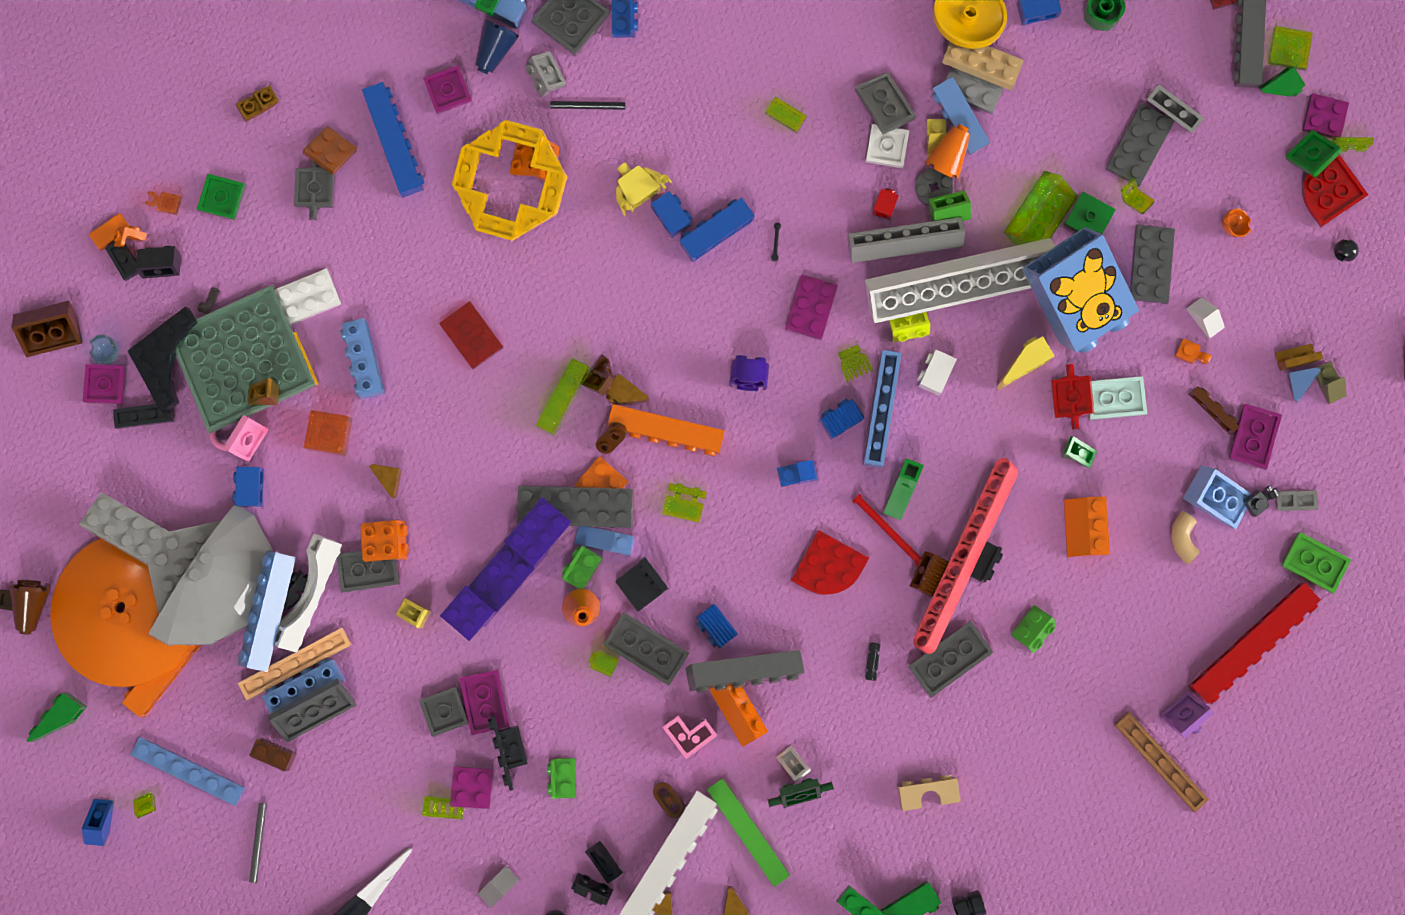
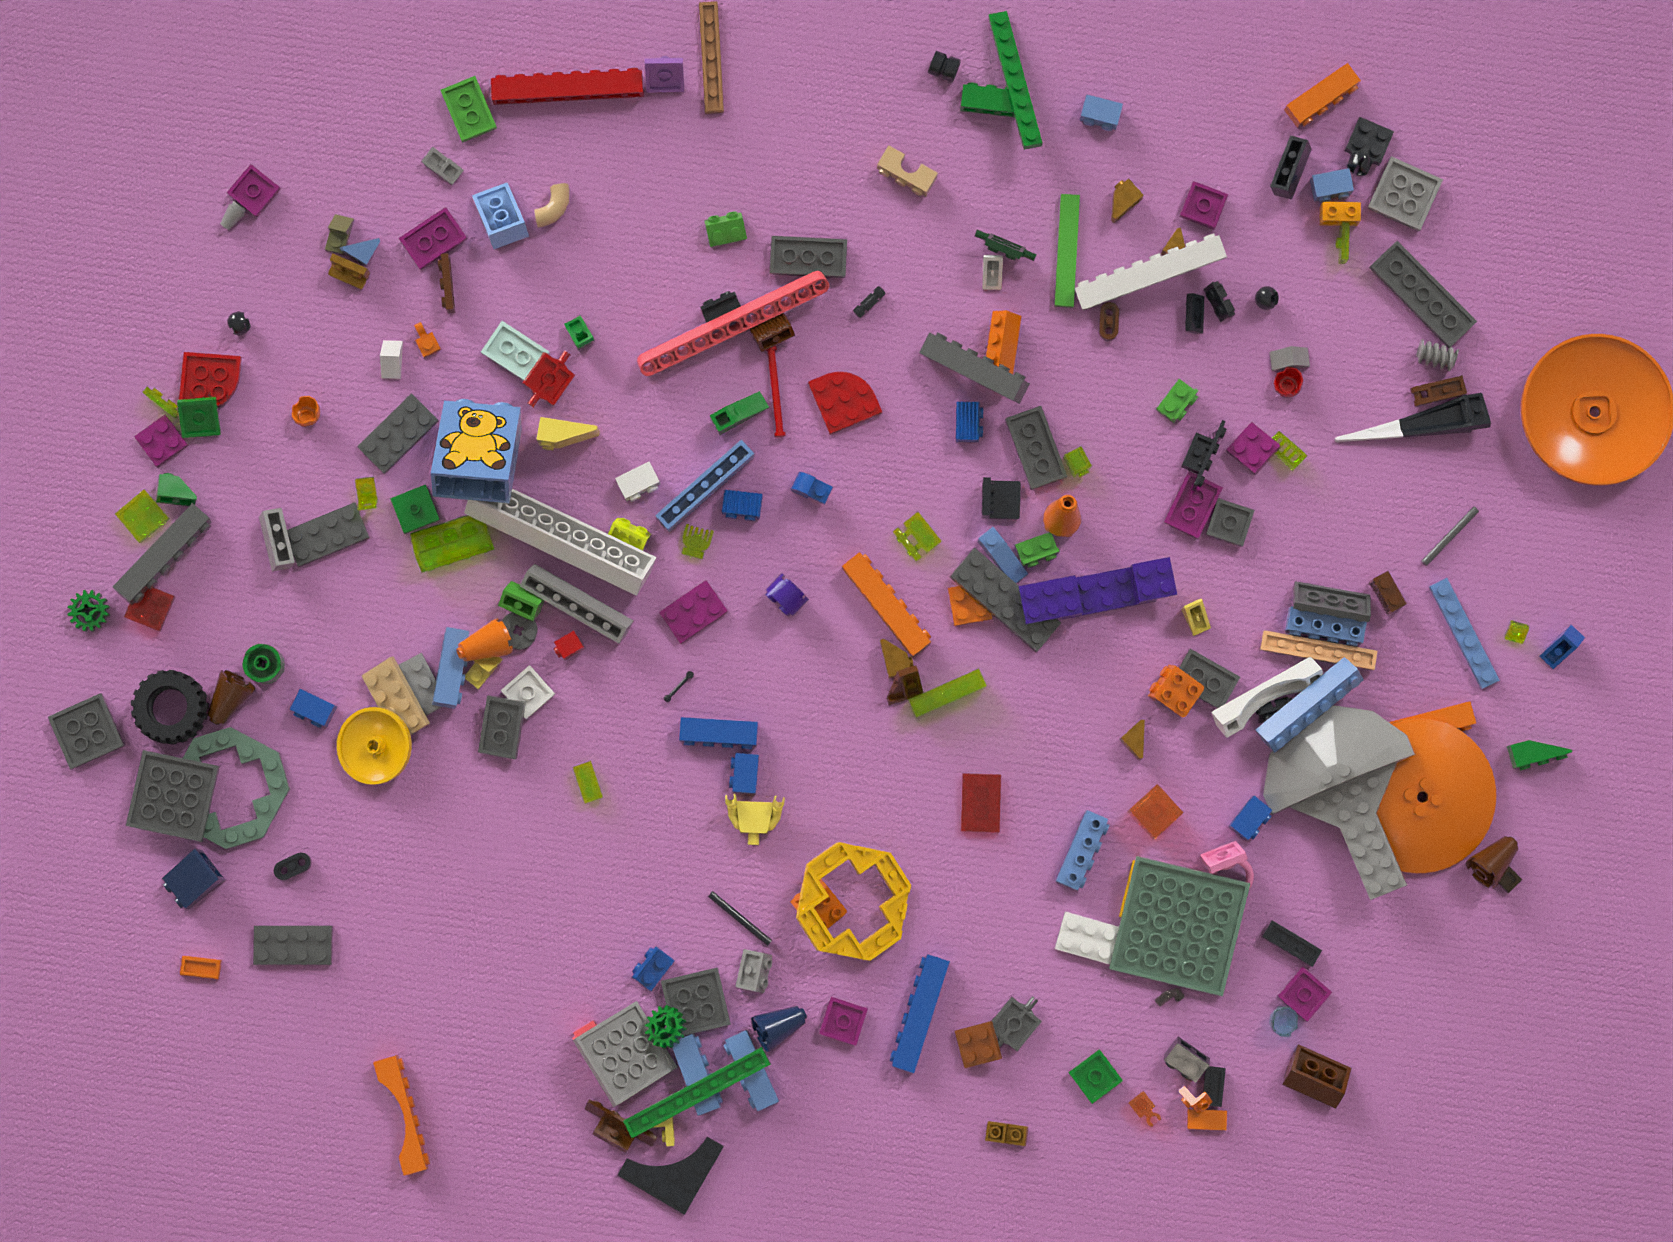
camera: 140 degrees left, 0 degrees up
(156, 356) = (1246, 982): black plate -> none
(263, 393) = (1183, 878): pearl gold slope -> none
(483, 865) = (1288, 382): none -> red hair
(609, 438) = (935, 631): reddish brown plate -> none
(689, 740) = (1058, 352): bright pink brick -> none
(1086, 526) = (621, 273): orange slope -> none
(1257, 501) = (472, 188): black plate -> none

